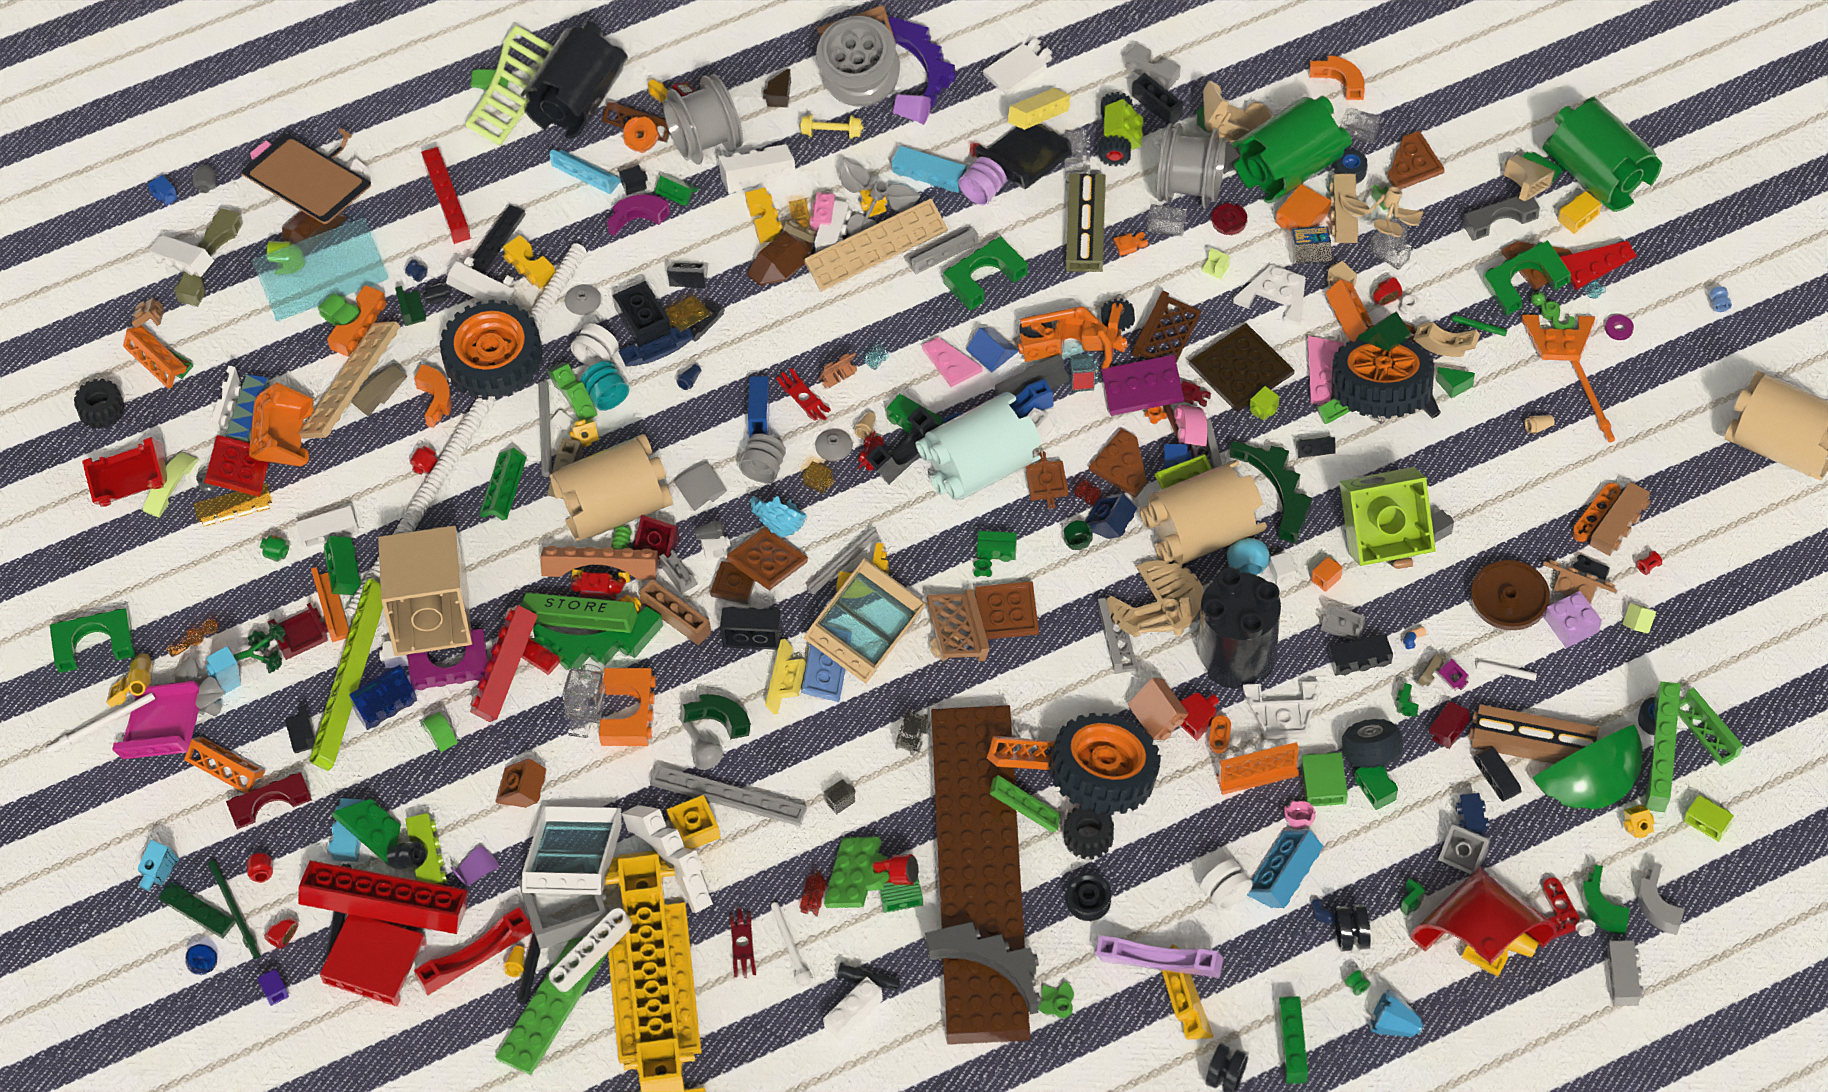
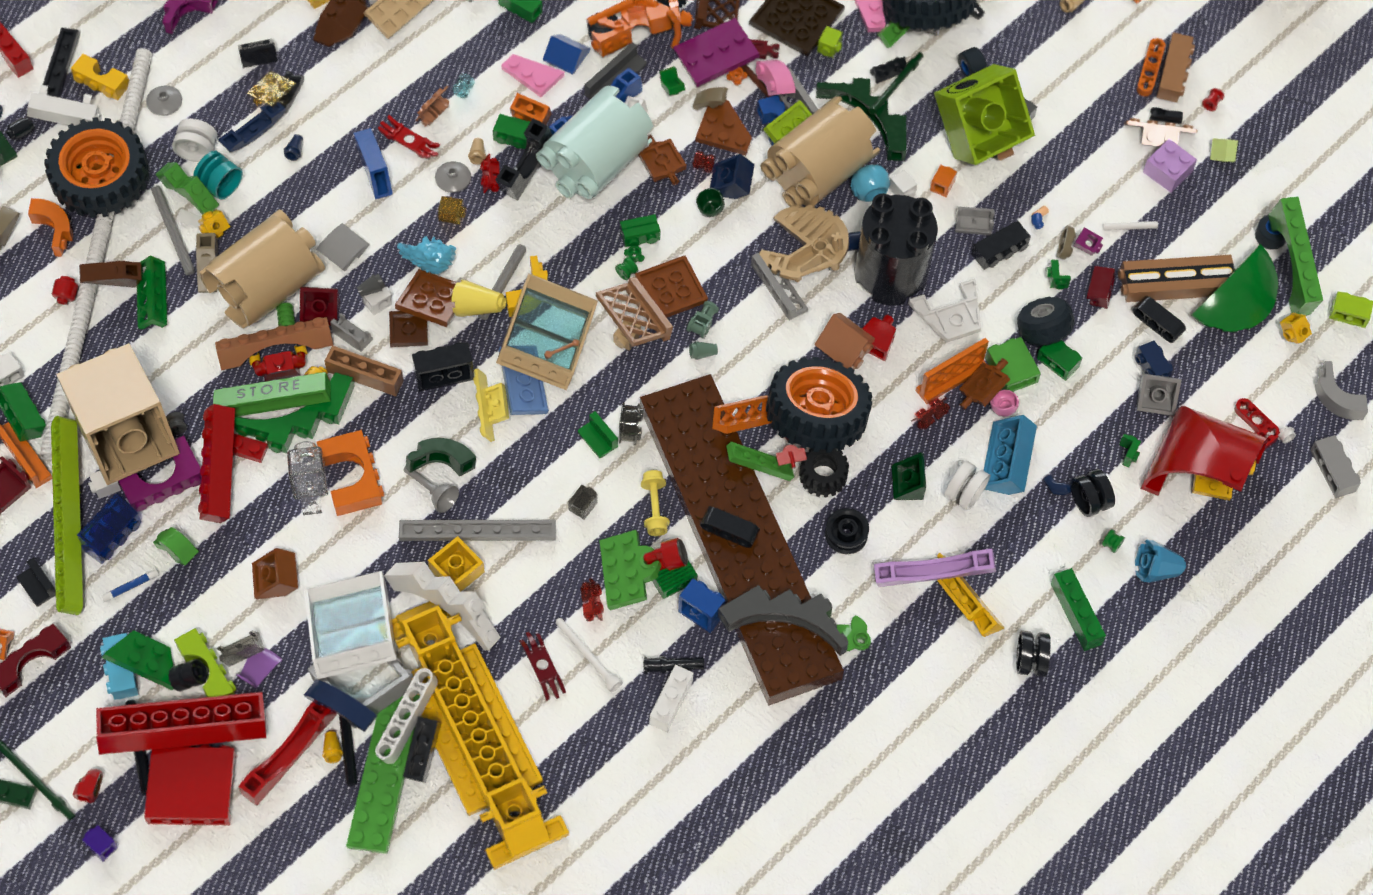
camera: 25 degrees left, 5 degrees up
(201, 959) = (17, 837): clear blue piece -> none
(259, 867) = (44, 729): red head -> none
(385, 757) = (129, 585): none -> blue bar
(464, 845) = (241, 649): none -> clear smoke hinge
(470, 455) = (111, 273): none -> reddish brown slope
(480, 615) = (176, 423): none -> dark grey wheel
(533, 921) = (340, 703): none -> dark blue slope
(595, 987) = (421, 750): none -> black brick
(641, 313) = (228, 99): black brick -> none
(762, 458) = (394, 205): light grey wheel -> none
(805, 571) = (475, 299): none -> light yellow cone
(858, 643) = (548, 354): none -> nougat hinge
(879, 737) = (598, 436): none -> green panel
(902, 838) = (656, 524): none -> light yellow piece
(911, 924) = (700, 605): none -> blue brick
(931, 398) = (527, 109): none -> orange brick
(968, 859) = (729, 527): none -> black beam
(969, 579) = (626, 268): none -> green wheel
(1014, 680) = (702, 350): none -> sand green cone
(1025, 651) = (702, 320): none -> sand green connector
(1059, 806) = (791, 455): none -> piece
(1083, 372) = (659, 53): clear light blue brick -> none
(1086, 403) = (670, 81): none -> green bracket
(1118, 430) = (710, 97): none -> dark tan slope
(1173, 863) = (909, 478): none -> dark green slope
(1213, 806) = (936, 408): none -> clear red hinge
(1218, 735) = (905, 351): orange plate -> none
(1284, 790) = (984, 384): none -> dark orange plate
(1340, 448) = (912, 64): none -> dark green bar
(1403, 457) = (971, 61): none -> black wheel
(1510, 595) = (1109, 158): reddish brown dish -> none
(1603, 913) = (1291, 415): green arch -> none
(1713, 723) = (1324, 227): bright green fence -> none

